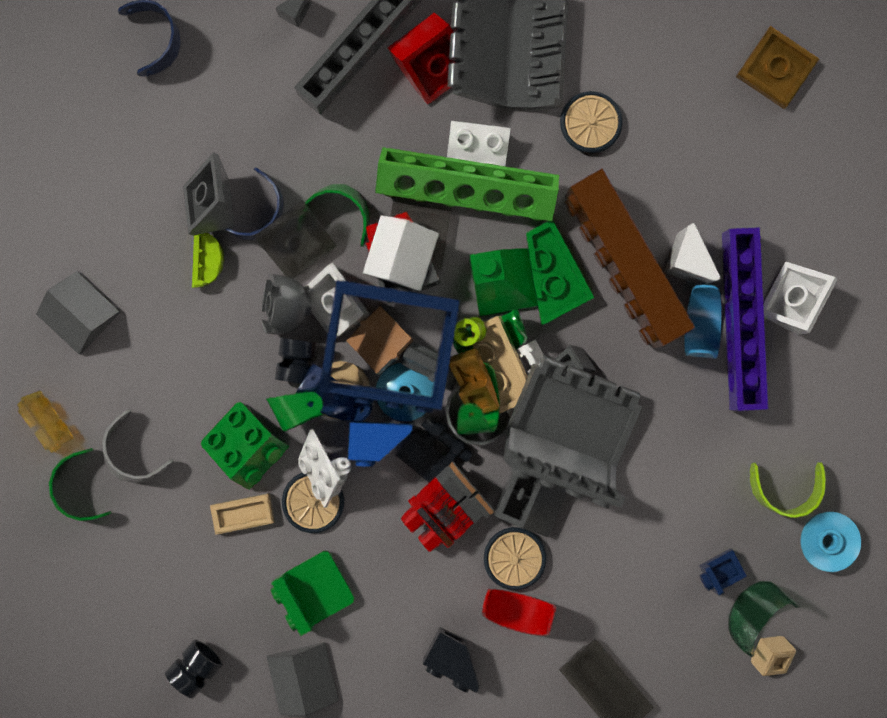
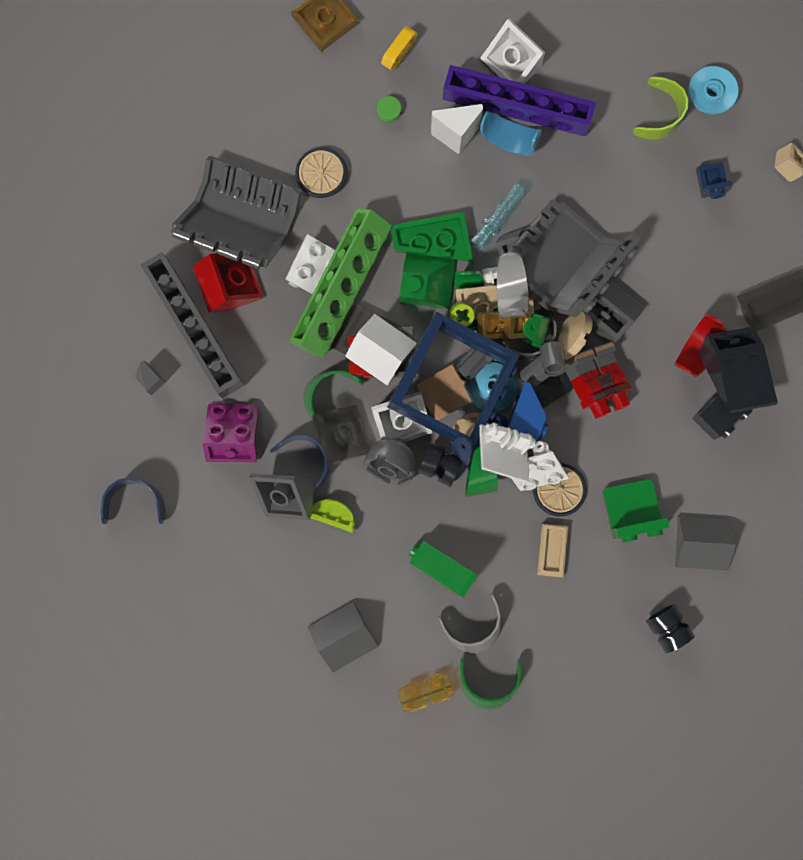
camera: 70 degrees left, 5 degrees down
(180, 399) = (442, 568): none -> green slope
(243, 446) = (496, 531): green bracket -> none
(262, 116) = (230, 433): none -> magenta bracket
(320, 426) = (505, 451): none -> white hinge
(439, 443) = (549, 363): none -> dark grey piece
(482, 461) = (572, 334): none -> tan tile
(505, 664) = (739, 369): none -> black slope
(513, 379) = (512, 286): none -> light grey piece
(514, 558) = (654, 340): tan wheel -> none
(591, 335) = (492, 225): none -> clear light blue pin
(627, 259) = (443, 174): reddish brown brick -> none
(690, 175) = (388, 109): none -> bright green tile
(753, 611) = (749, 166): clear green piece -> none
(766, 164) = (399, 48): none -> yellow beam

